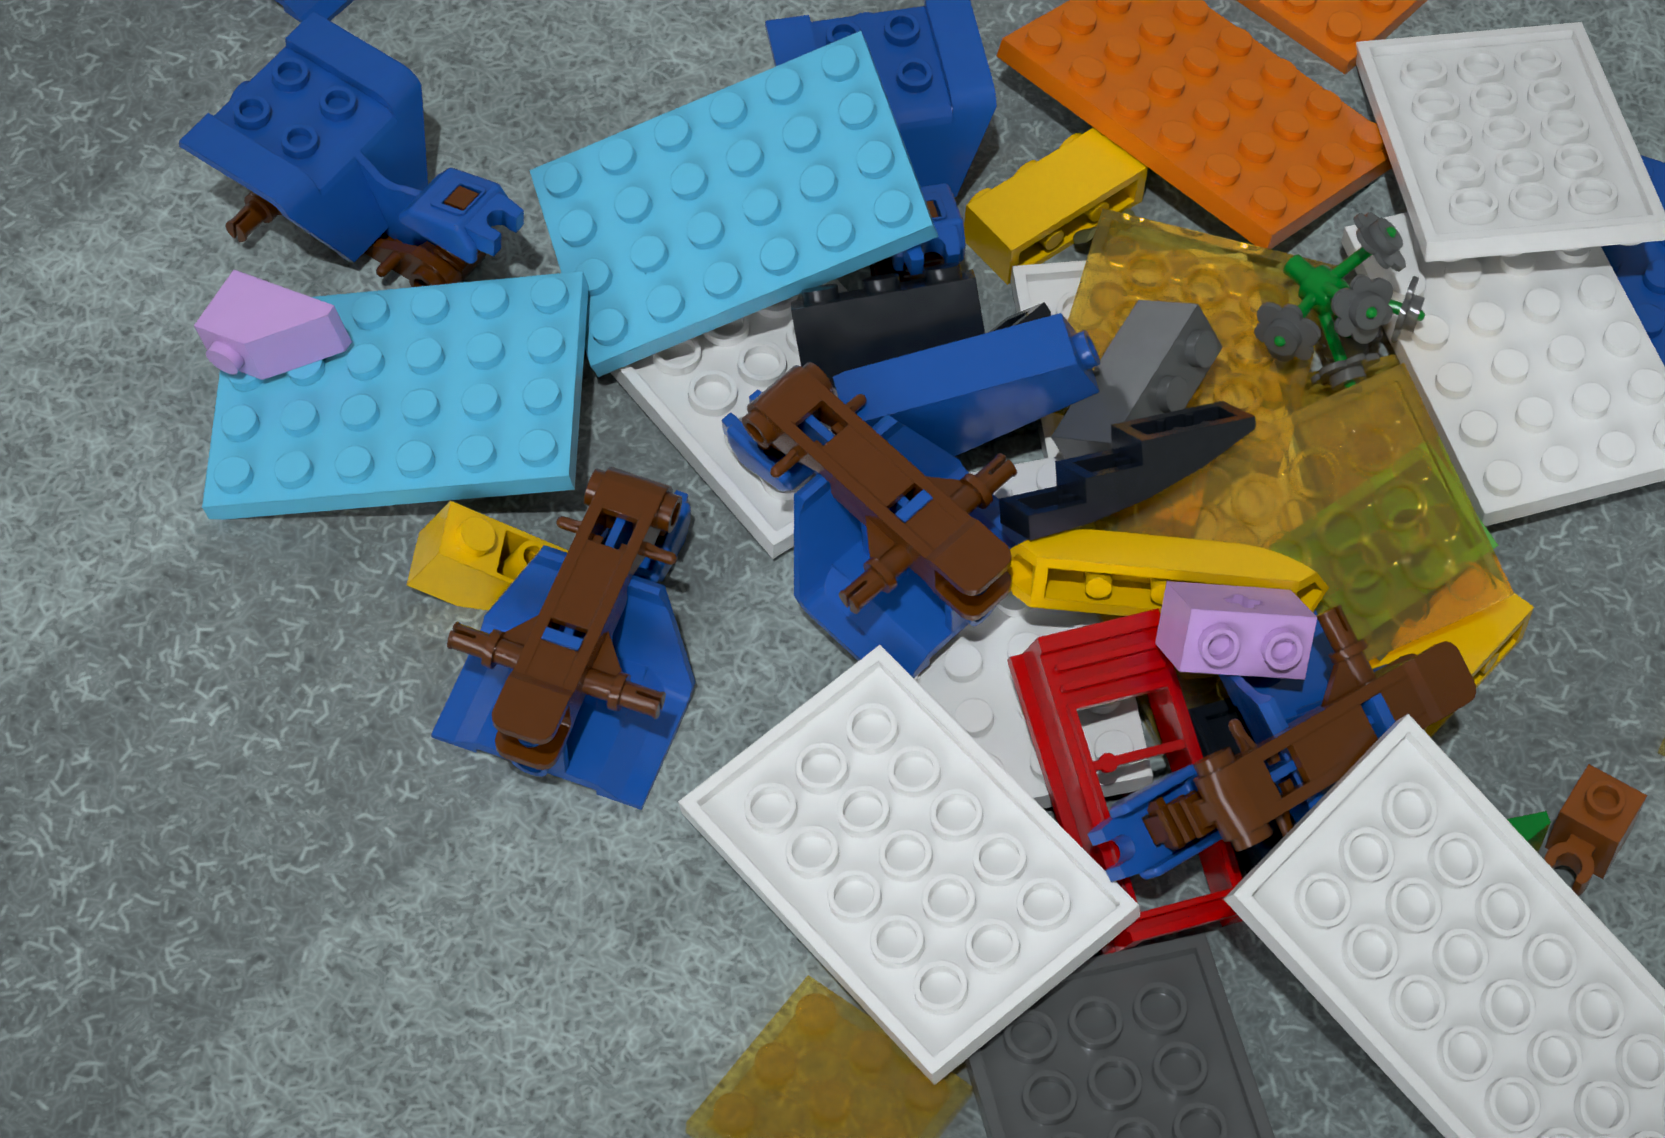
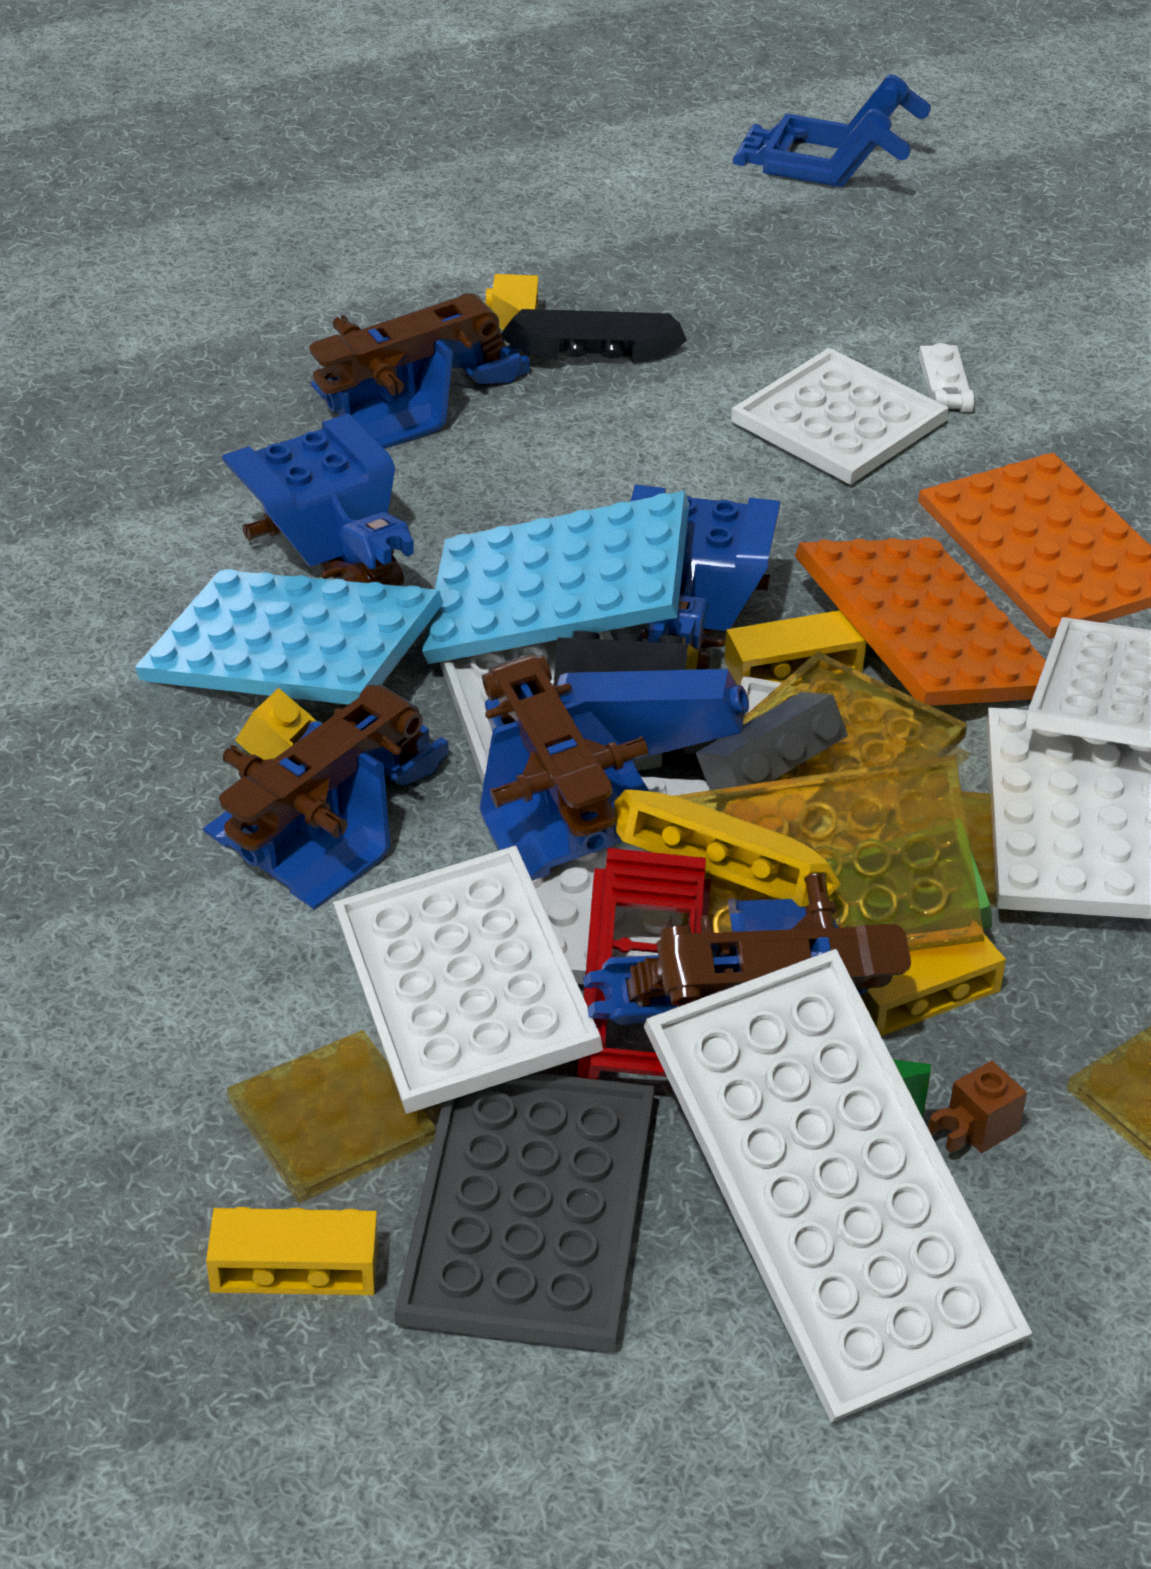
camera: 25 degrees right, 15 degrees down
(268, 328) = (225, 574): lavender slope -> none
(1143, 461) = (744, 768): black slope -> none
(1235, 630) = (747, 878): lavender brick -> none
(1354, 308) = (954, 730): dark grey plant -> none

